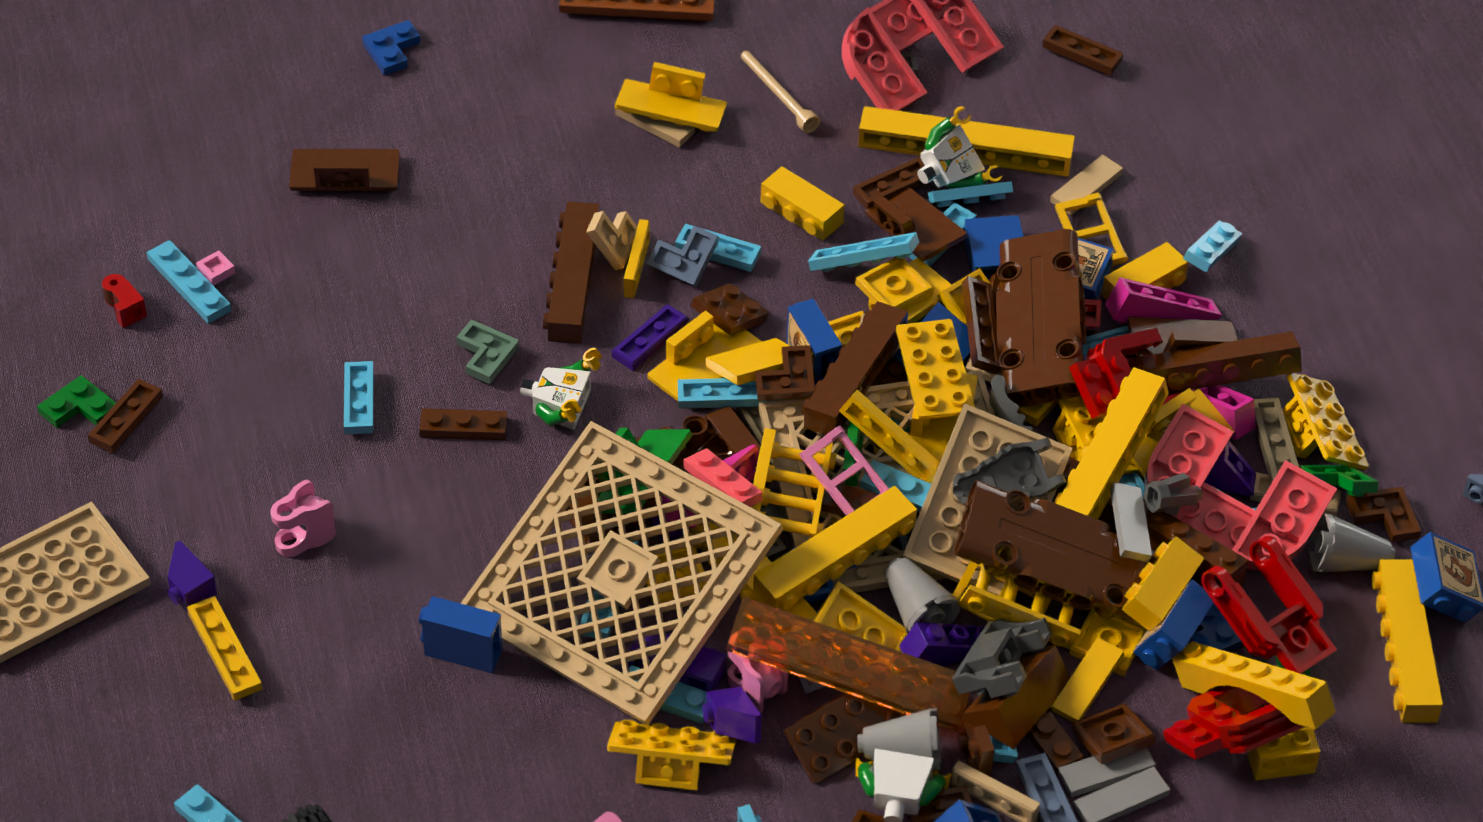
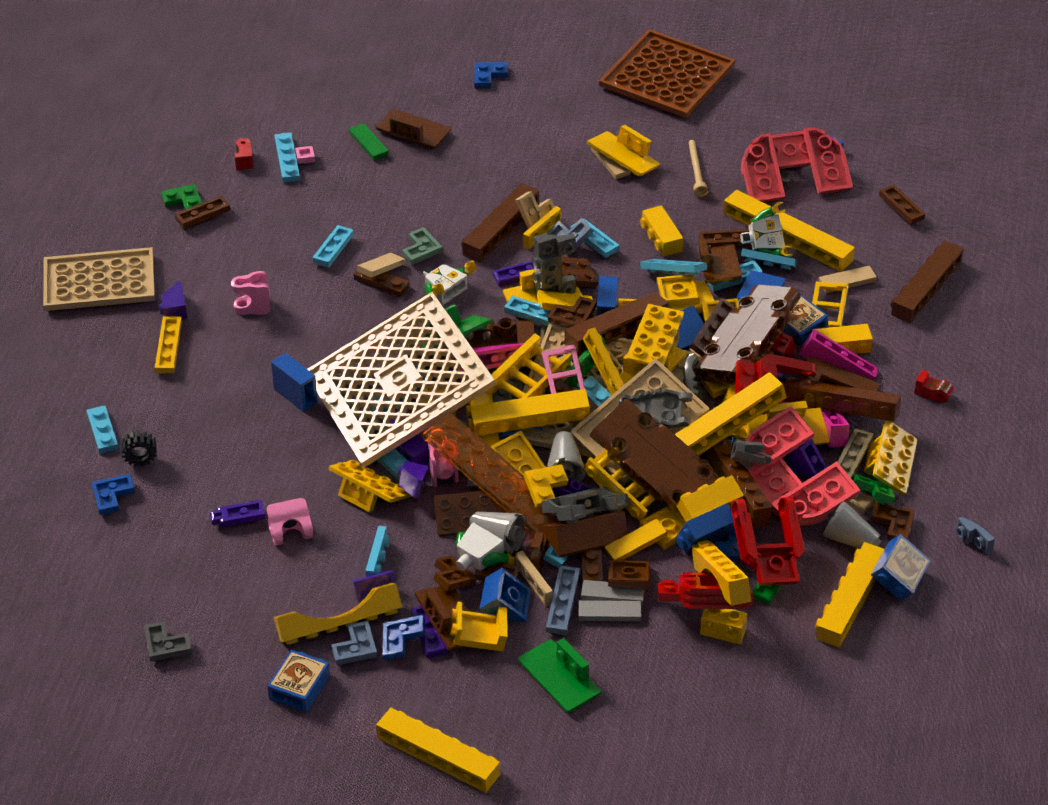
camera: 30 degrees right, 5 degrees down
(292, 213) = (368, 141): none -> green tile
(453, 402) = (380, 265): none -> tan tile
(715, 312) = (548, 263): none -> dark grey bracket
(718, 474) = (489, 351): coral plate -> none
(925, 653) = (542, 481): none -> yellow plate
(1130, 522) = (712, 459): light grey tile -> none
(1191, 151) = (926, 281): none -> reddish brown brick
(1212, 246) = (897, 337): medium azure plate -> none
(1302, 302) = (933, 388): none -> red leg

